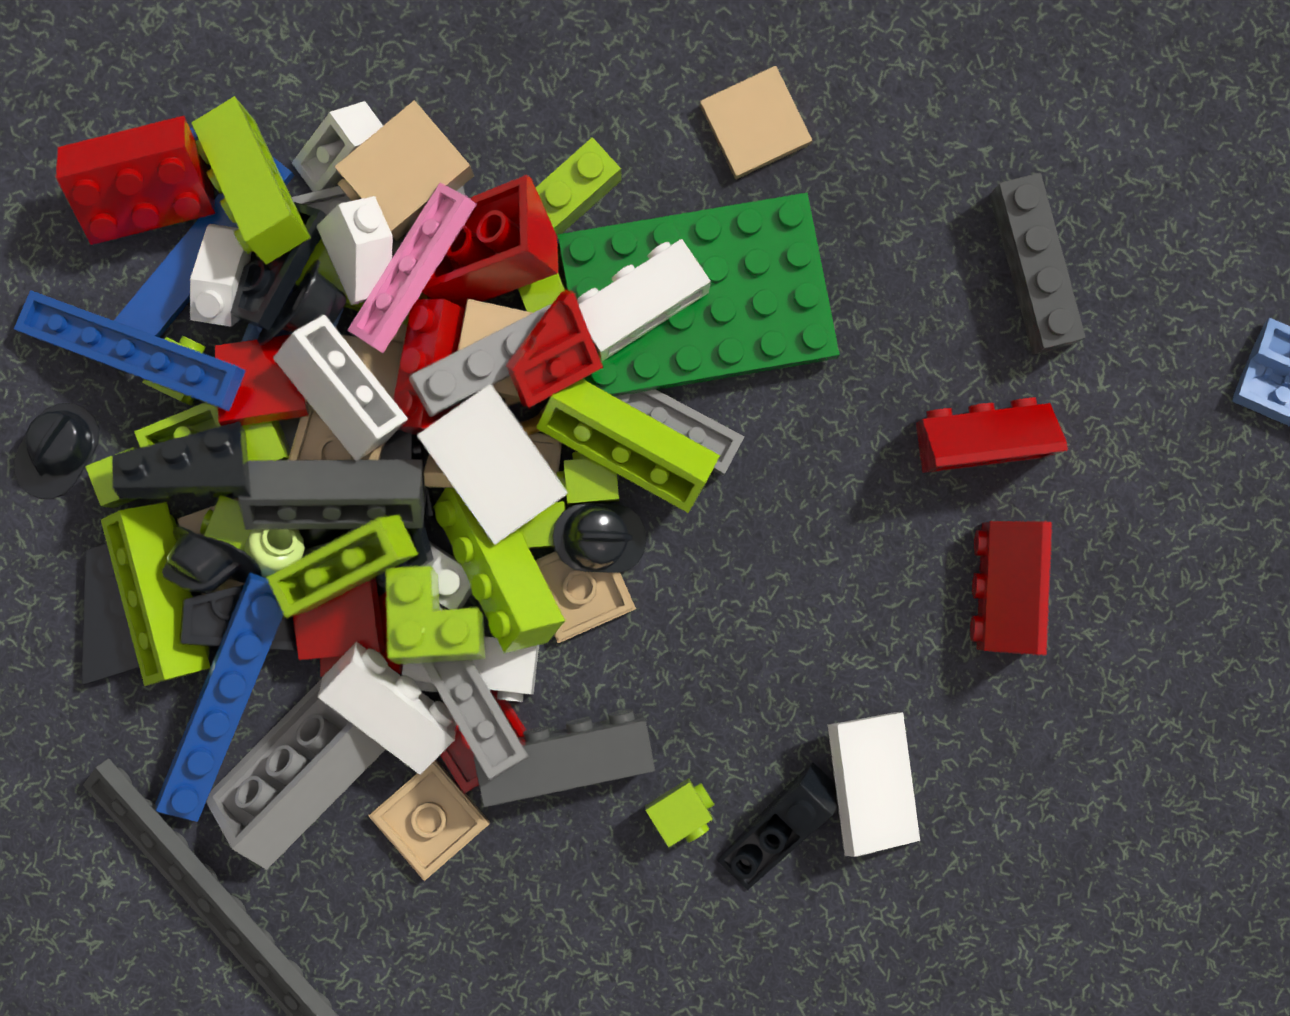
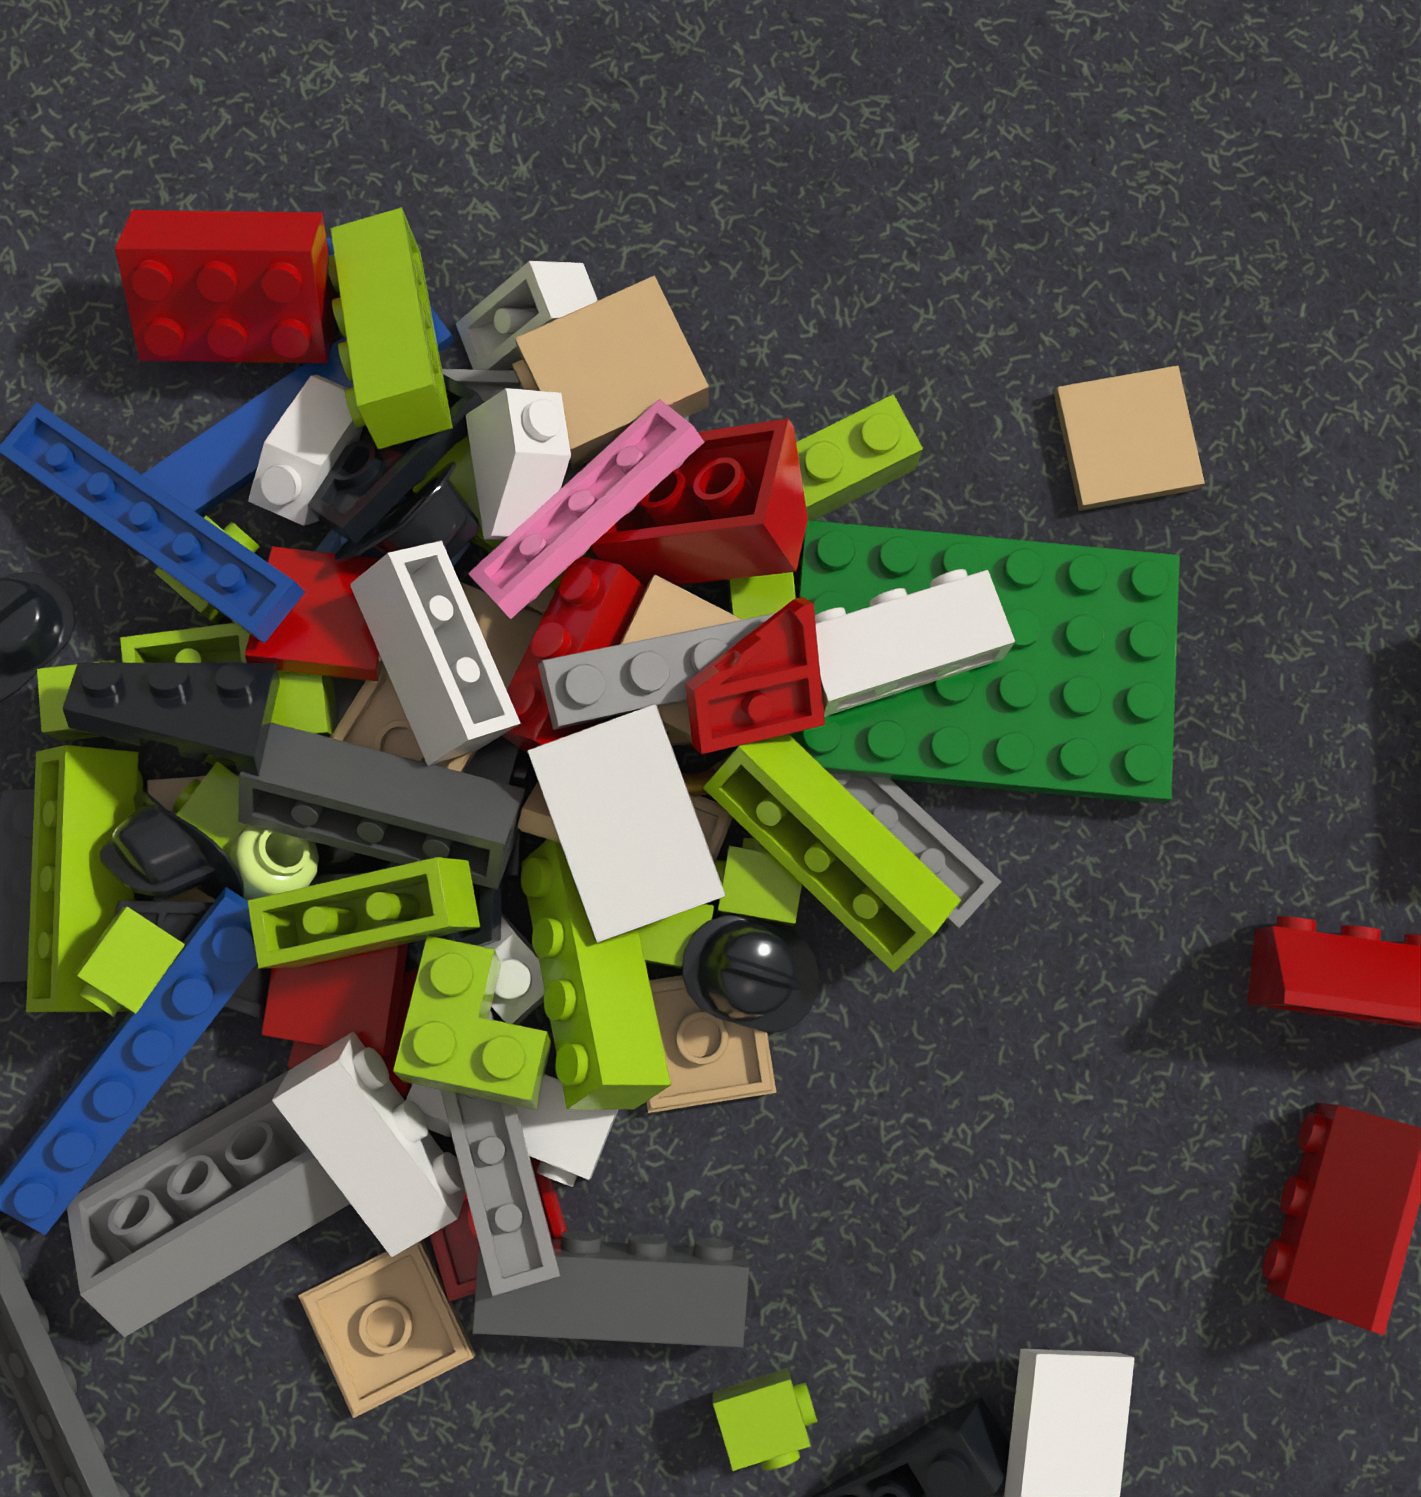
camera: 15 degrees right, 5 degrees down
(200, 637) = (126, 963): none -> lime brick

